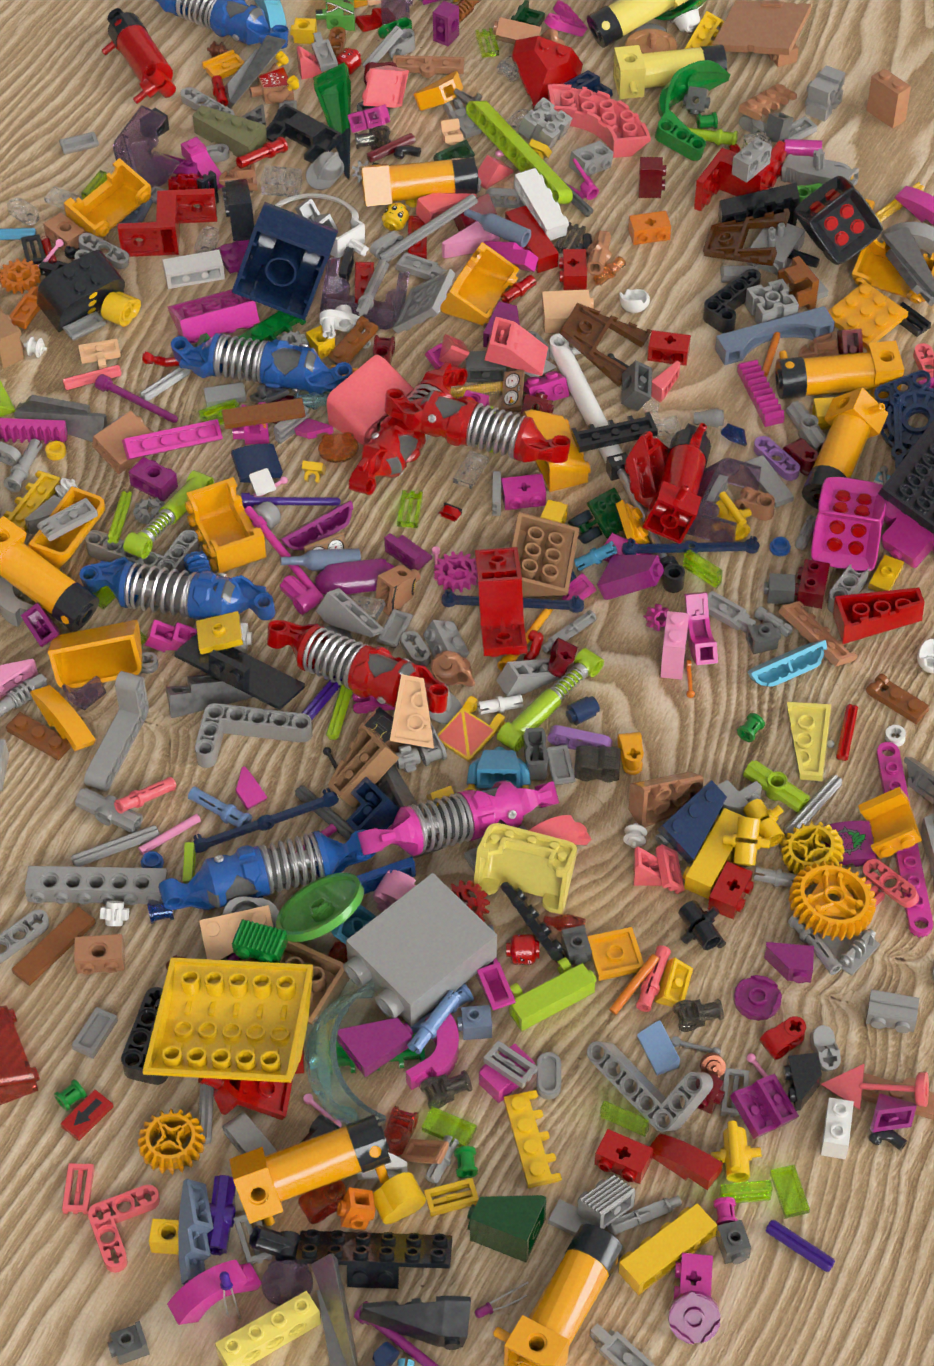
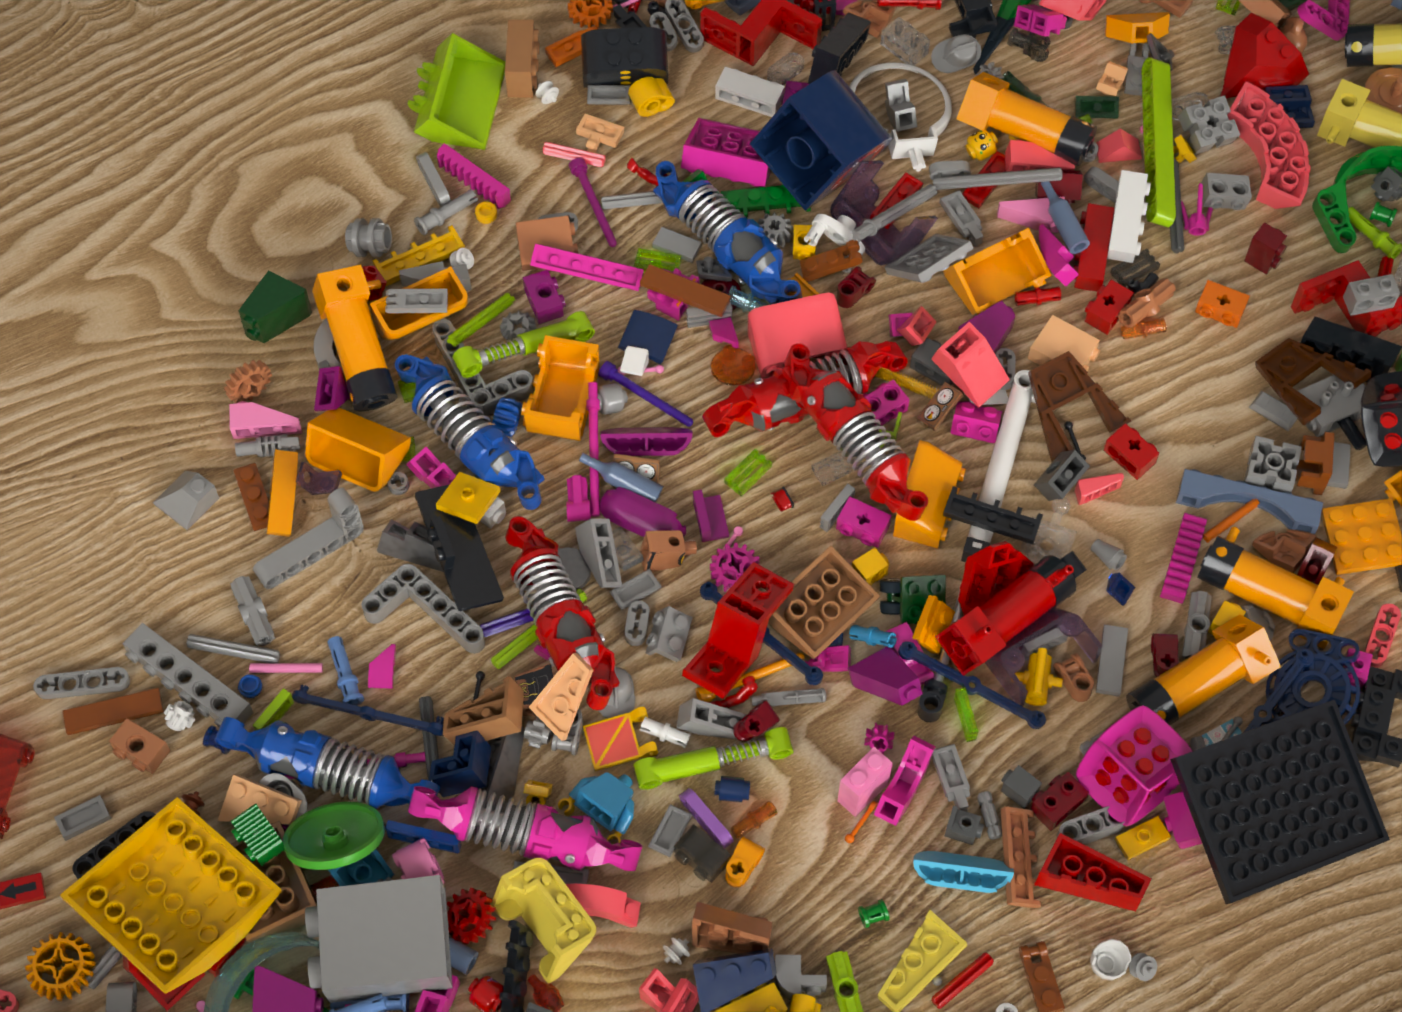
camera: 35 degrees right, 10 degrees up
(70, 1095) = (17, 864): green bush -> none
(78, 417) = (525, 189): flat silver wedge -> none
(138, 798) = (285, 617): coral pin -> none
(313, 468) = (692, 375): yellow tile -> none
(347, 264) = (892, 173): black tile -> none
(388, 148) = (1041, 63): dark red axle -> none
(407, 149) = (1055, 74): black arm -> none
(452, 669) = (649, 668): nougat hair -> none
(532, 402) = (948, 437): dark red brick -> none
(536, 753) = (655, 803): dark grey brick -> none
(615, 719) = (754, 819): none -> clear orange axle
(634, 300) = (1139, 377): white hair -> none
(720, 307) = (1267, 426): black beam -> none
(774, 450) = (1135, 649): medium lavender beam -> none
(780, 546) = (1062, 739): blue plate -> none

